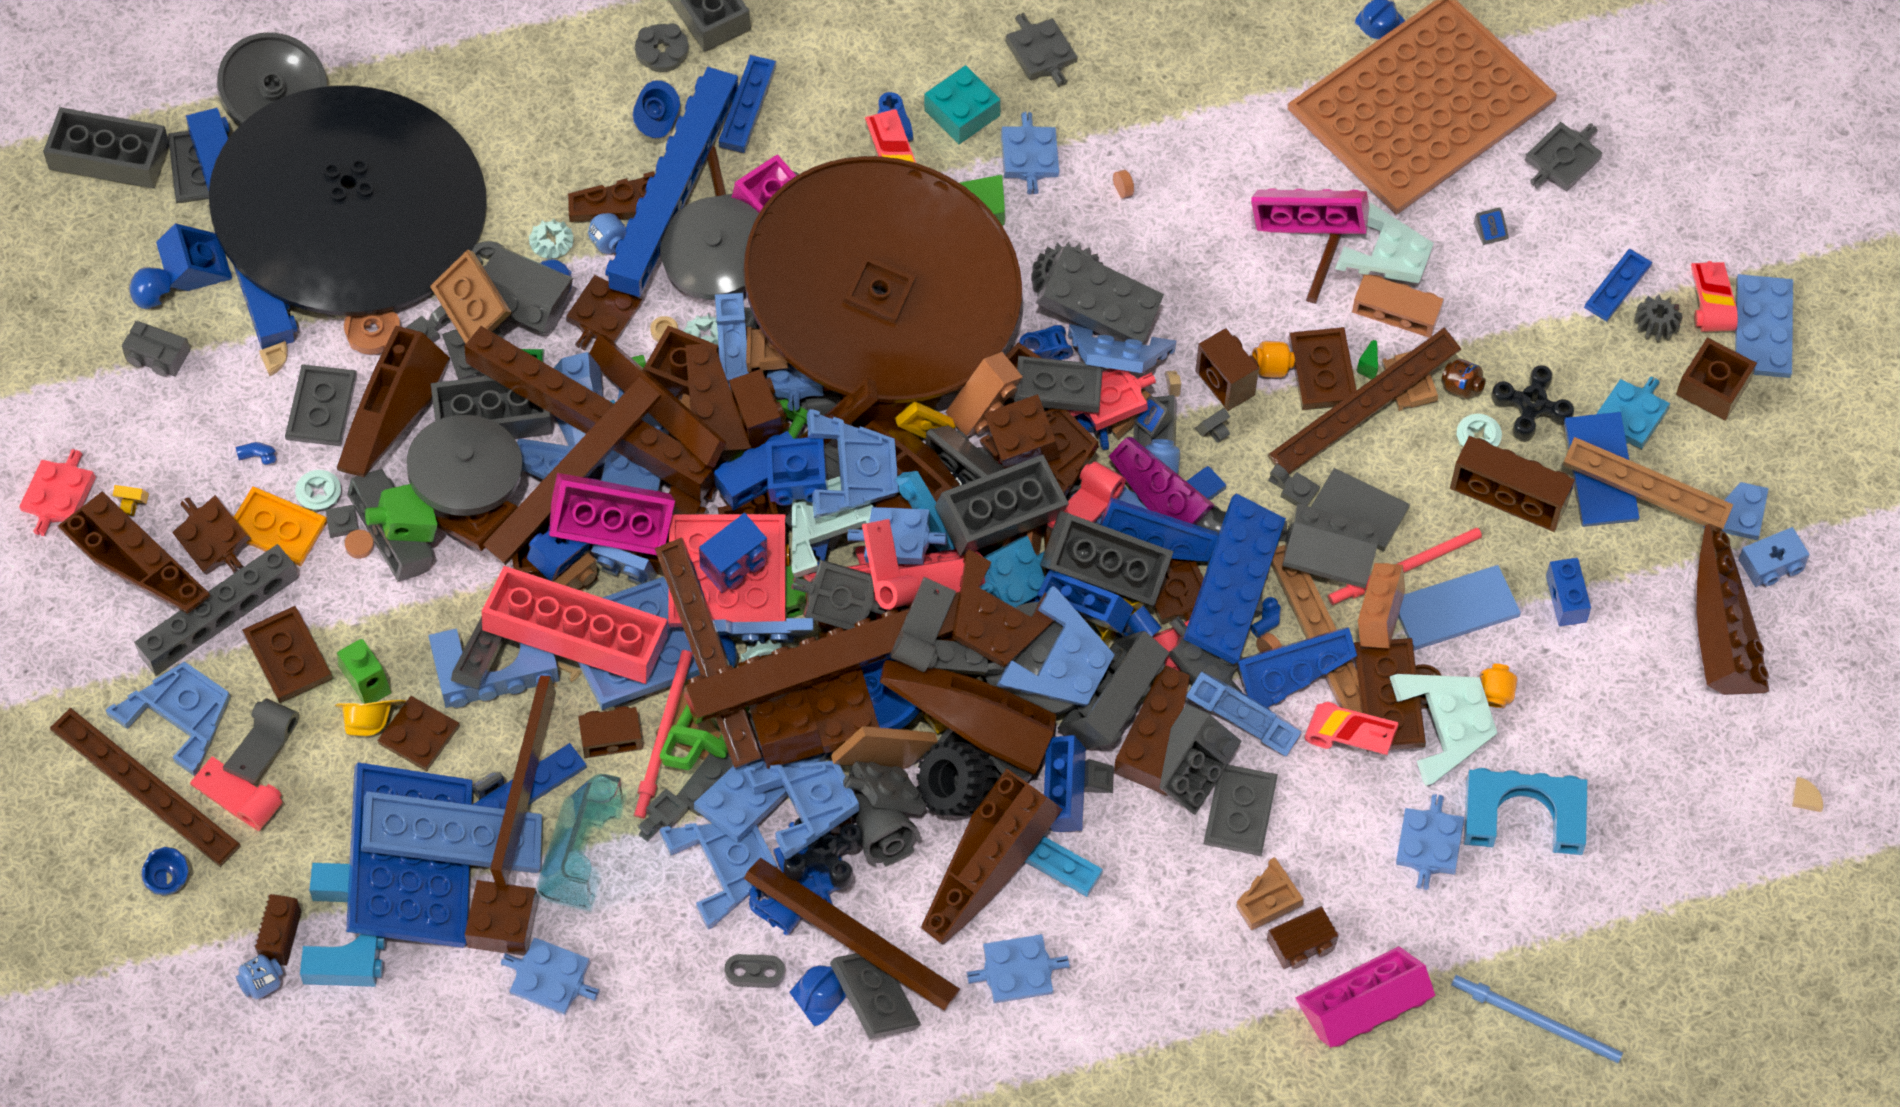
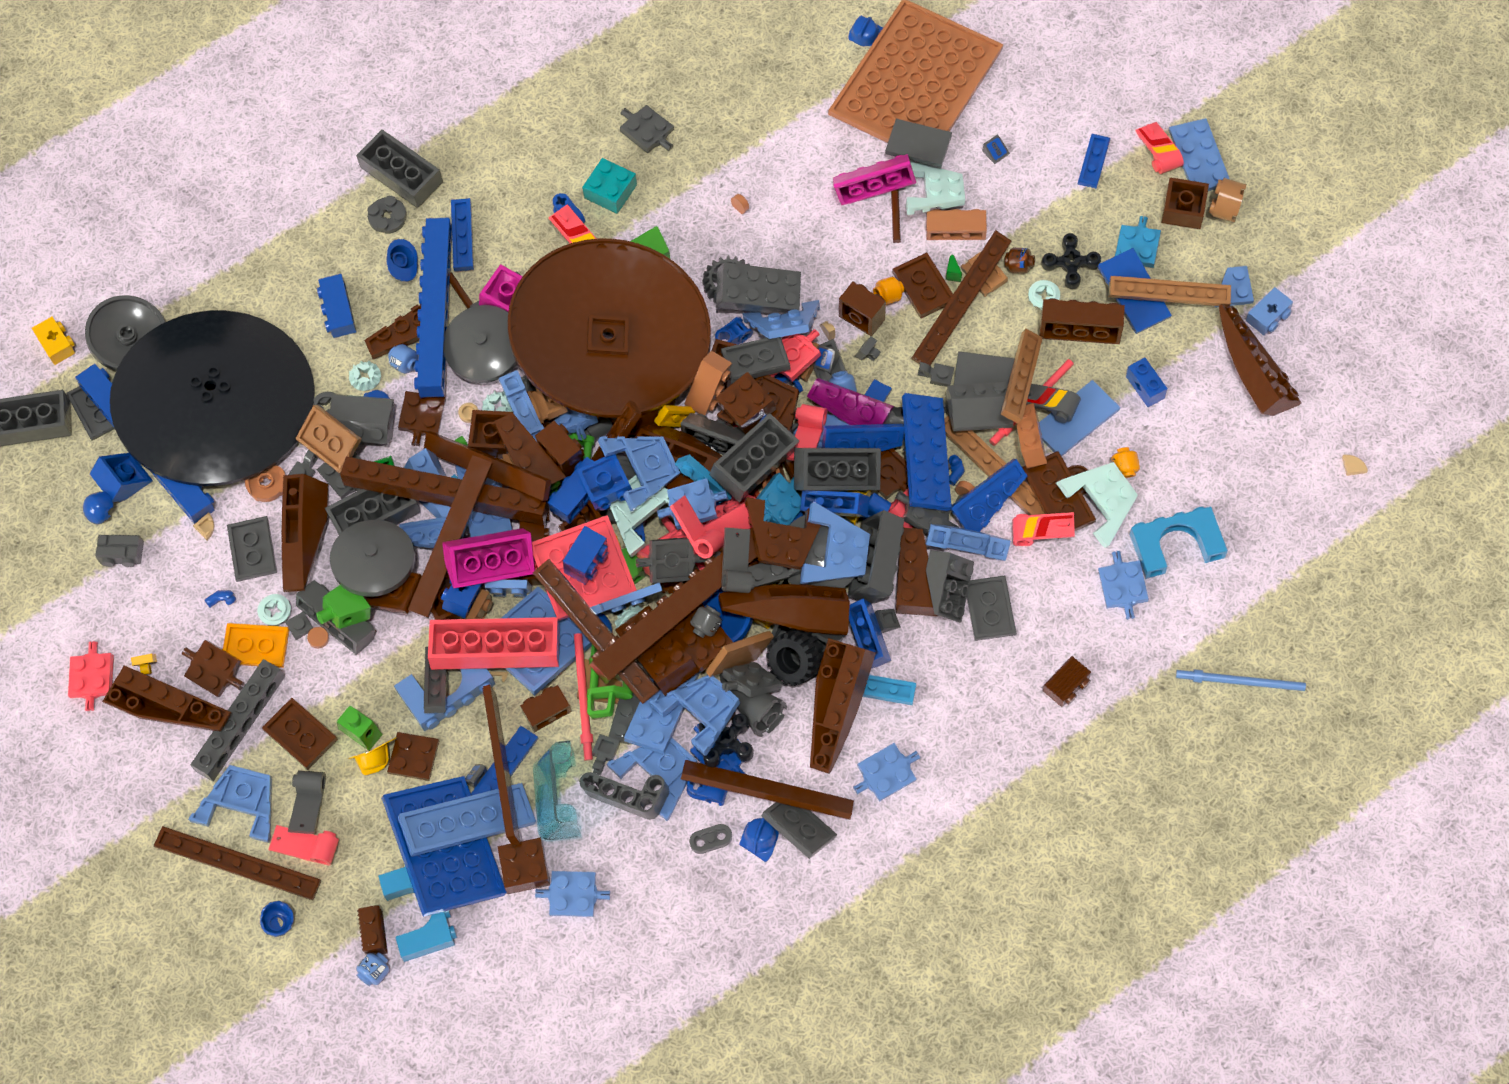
camera: 15 degrees left, 5 degrees up
(178, 62) = (58, 349): none -> yellow brick
(550, 139) = (336, 306): none -> blue brick
(663, 870) = (622, 792): none -> dark grey beam
(854, 689) = (706, 621): none -> dark grey head
(1029, 152) = (668, 203): medium blue plate -> none
(1269, 896) = (1033, 661): medium nougat wing -> none
(1366, 996) = (1124, 706): dark pink slope -> none
(1390, 183) = (920, 142): none -> dark grey tile
(1401, 525) = (1021, 376): none -> medium nougat plate
(1440, 576) = (1059, 401): none -> dark grey door
(1563, 156) = (1024, 85): dark grey plate -> none
(1658, 318) = (1123, 177): dark grey gear -> none
(1775, 393) = (1228, 199): none -> medium nougat brick

